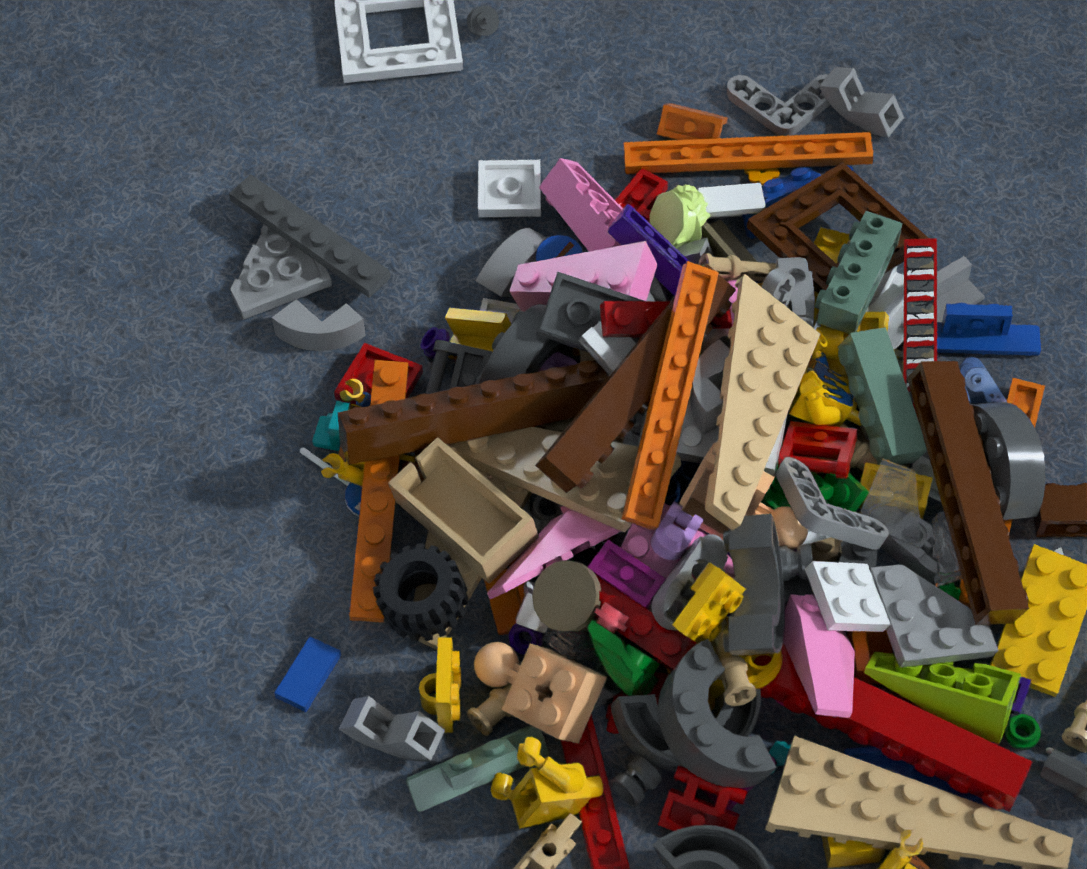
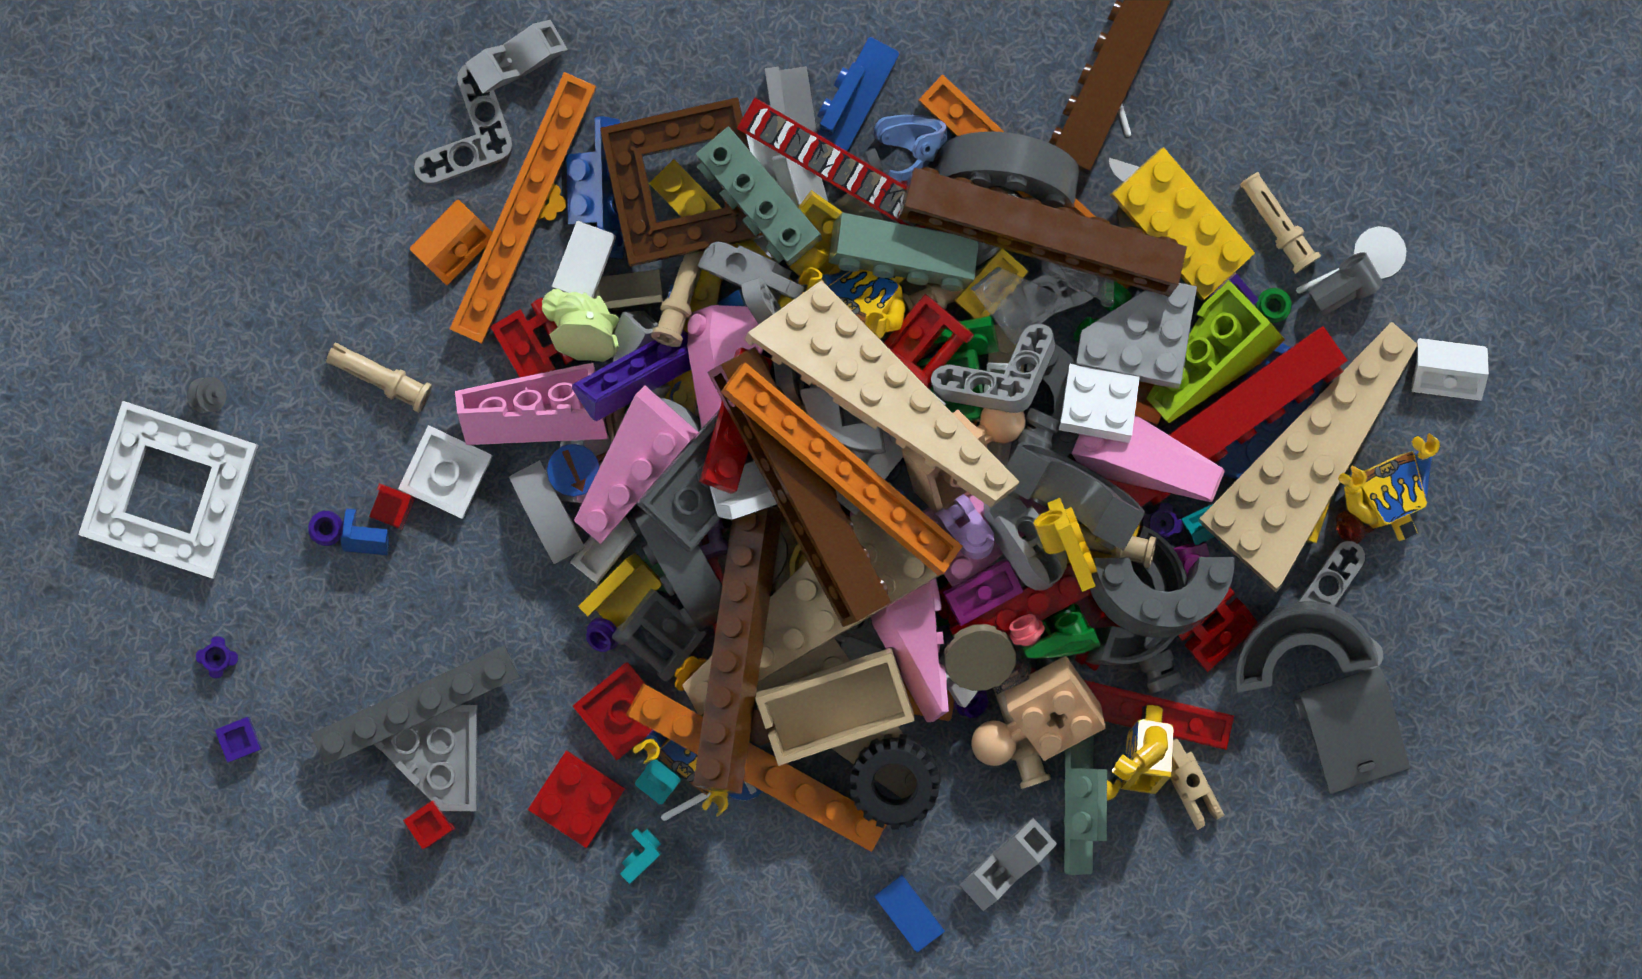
camera: 65 degrees left, 30 degrees up
(211, 283) = (428, 825): none -> red panel
(223, 141) = (238, 739): none -> dark purple plate
(258, 446) = (637, 861): none -> teal bracket
(279, 99) = (206, 657): none -> dark purple plate
(287, 383) = (576, 799): none -> red plate
(304, 330) = (525, 758): light grey brick -> none
(419, 126) = (314, 528): none -> dark purple plate
(426, 154) = (363, 538): none -> blue tile
(446, 684) = (1009, 804): yellow plate -> none
(463, 167) = (392, 506): none -> red panel
(560, 129) = (393, 383): none -> tan pin
(778, 720) = (1165, 513): none -> dark purple plate

